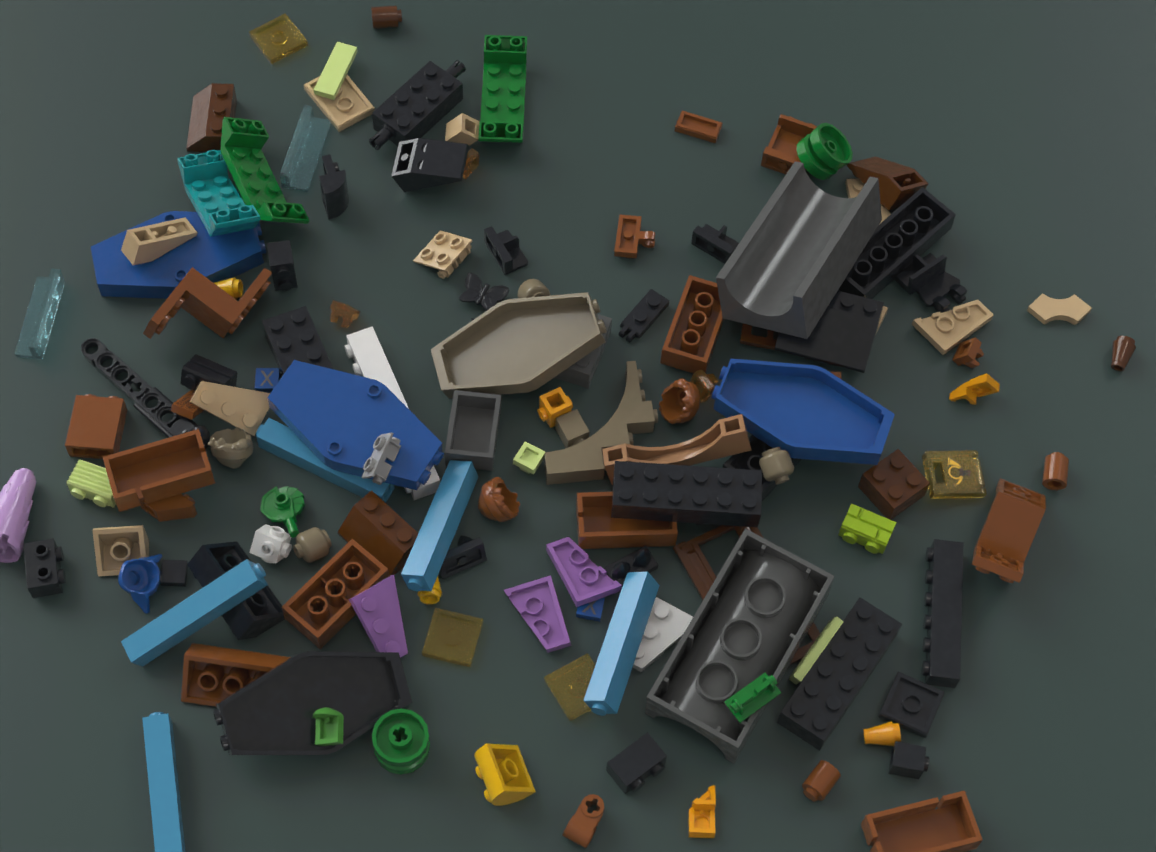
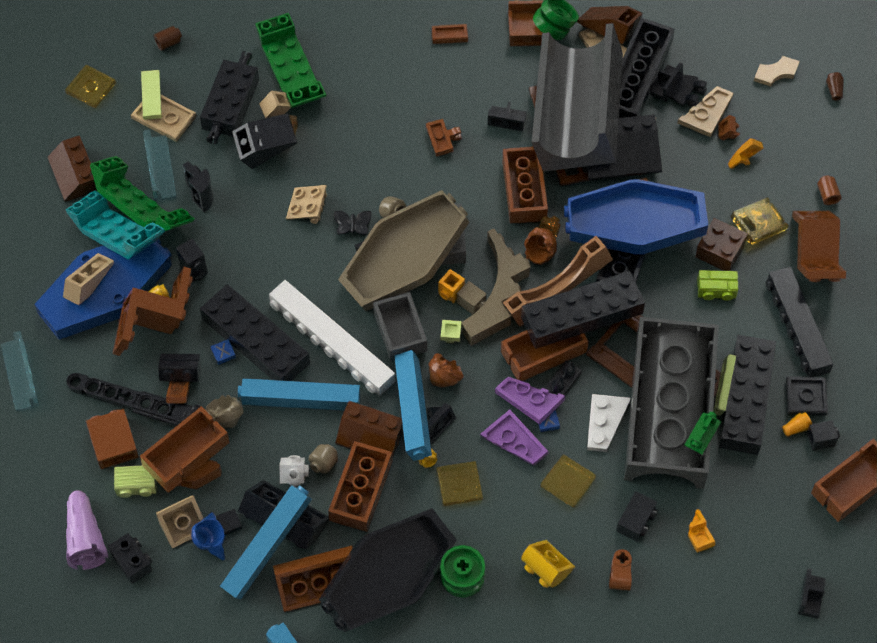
camera: 20 degrees left, 0 degrees up
(233, 405) = (211, 379): tan wing -> none
(283, 506) = (286, 439): green piece -> none
(328, 727) = (408, 582): bright green plate -> none
(344, 310) = (260, 278): clear orange tile -> none
(344, 415) = (314, 357): blue container -> none
(381, 616) = (403, 488): medium lavender wing -> none
(384, 448) = (349, 363): light grey hinge -> none
(505, 250) = (352, 183): black panel -> none
(621, 643) = (585, 436): dark azure brick -> none
(643, 315) = (480, 192): black hinge -> none
(776, 465) = (636, 263): dark tan head -> none
(820, 781) = (770, 474): dark orange brick -> none

